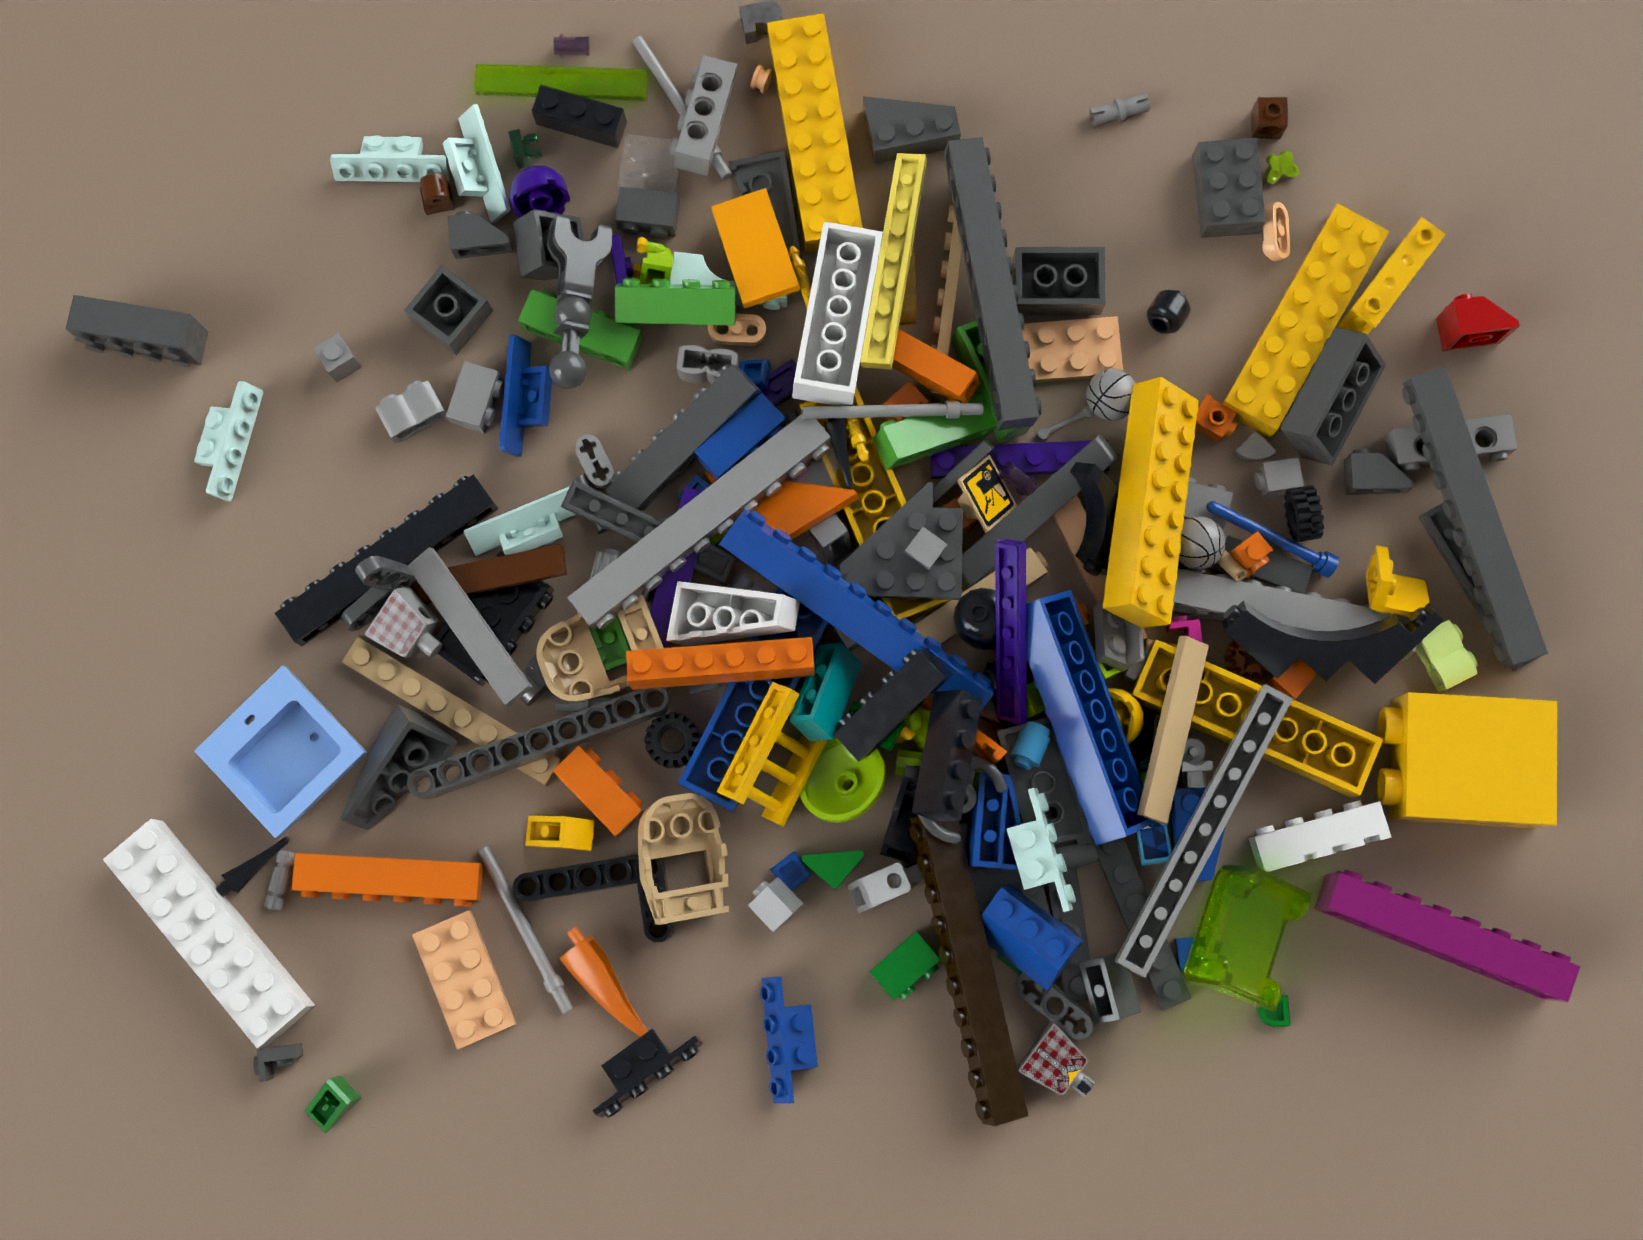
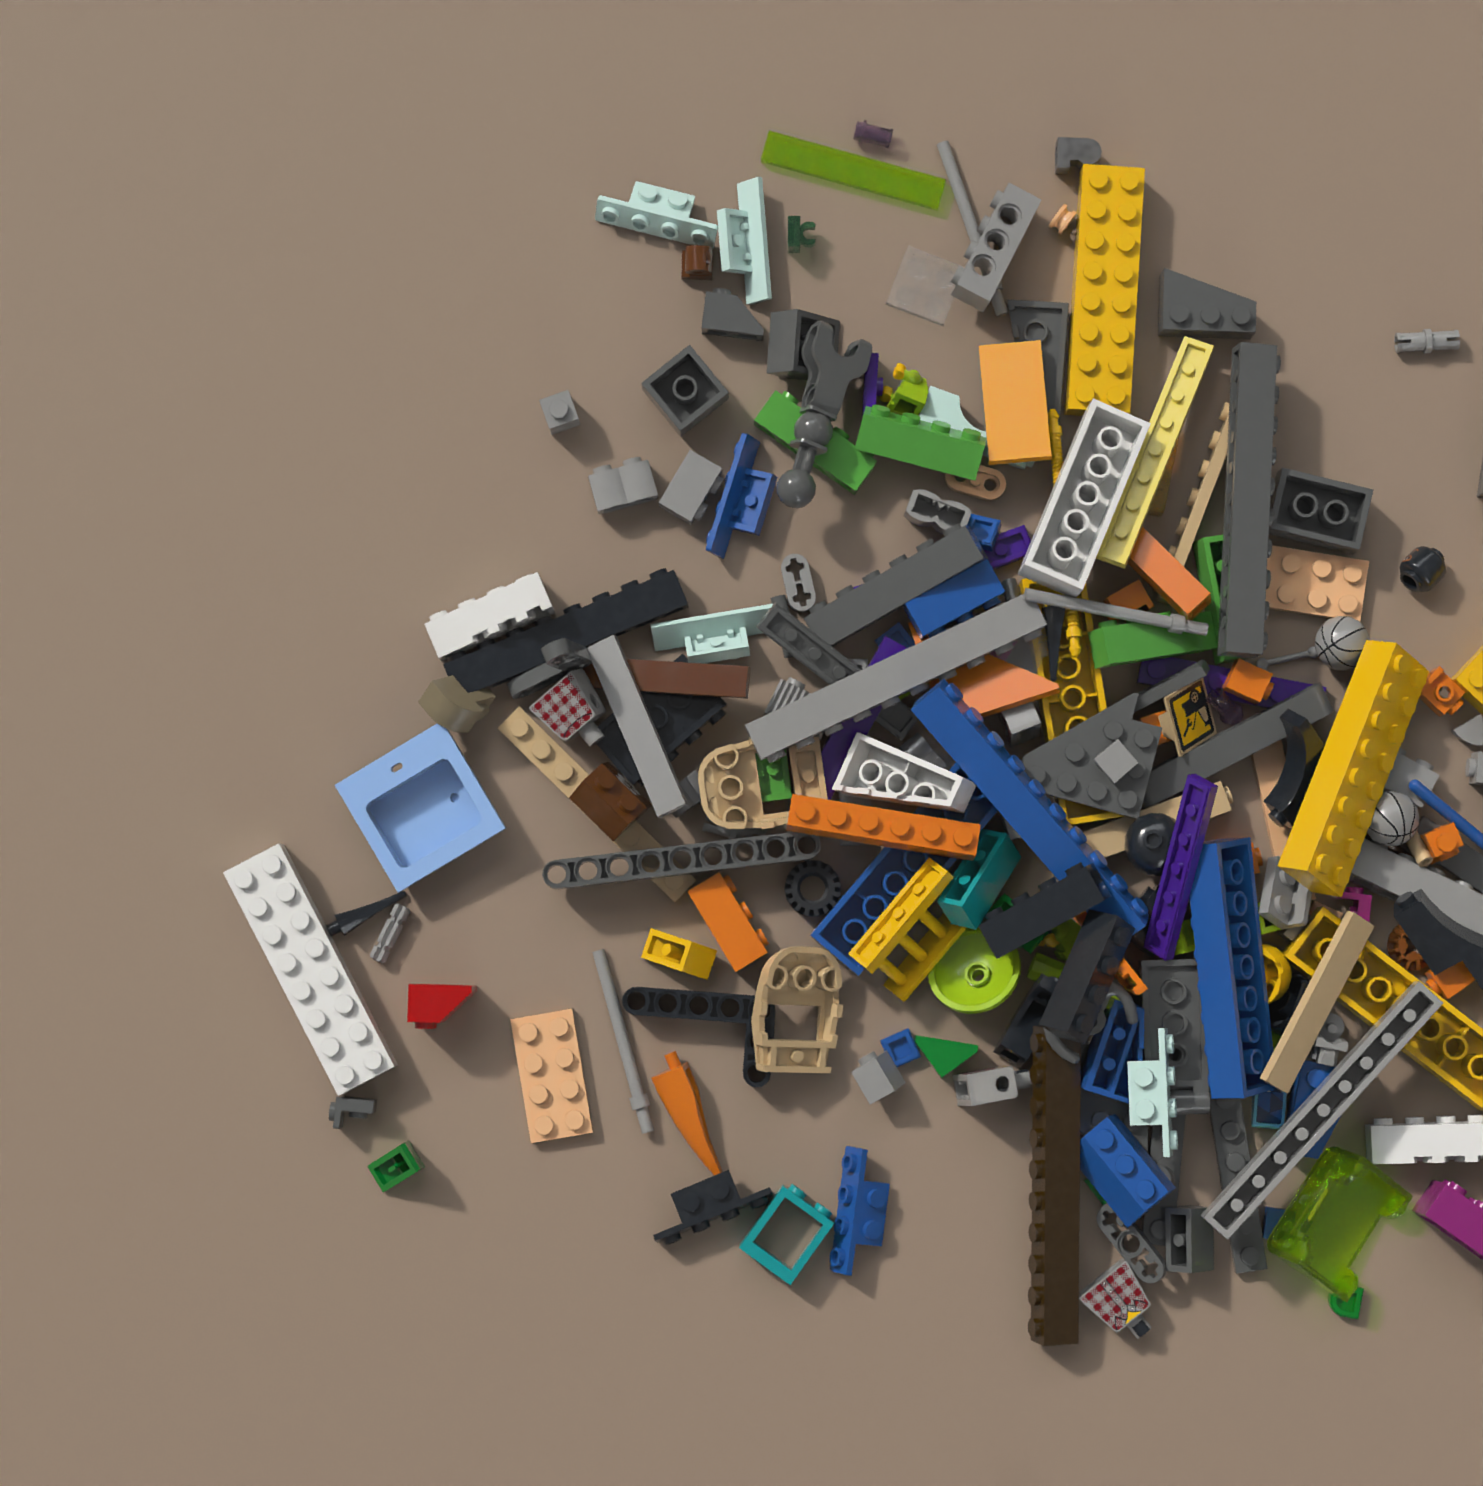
camera: 10 degrees right, 5 degrees up
(137, 330) = (362, 336): dark grey brick -> none
(227, 439) = (428, 469): light aqua bracket -> none
(291, 649) = (454, 707): none -> dark tan brick
(310, 557) = (489, 616): none -> white wedge
(334, 935) = (435, 1002): none -> red slope
(388, 878) = (499, 957): orange brick -> none
(402, 746) = (540, 833): dark grey wedge -> none
(459, 702) = (609, 800): none -> reddish brown slope
(539, 190) = (804, 287): dark purple cylinder -> none
(579, 116) = (864, 214): black brick -> none
(647, 212) = (911, 334): dark grey brick -> none
(712, 1107) = (766, 1258): none -> teal window
(905, 966) = (992, 1169): green brick -> none
(1030, 745) = (1171, 984): dark azure brick -> none
(1033, 449) = (1248, 682): none -> orange brick

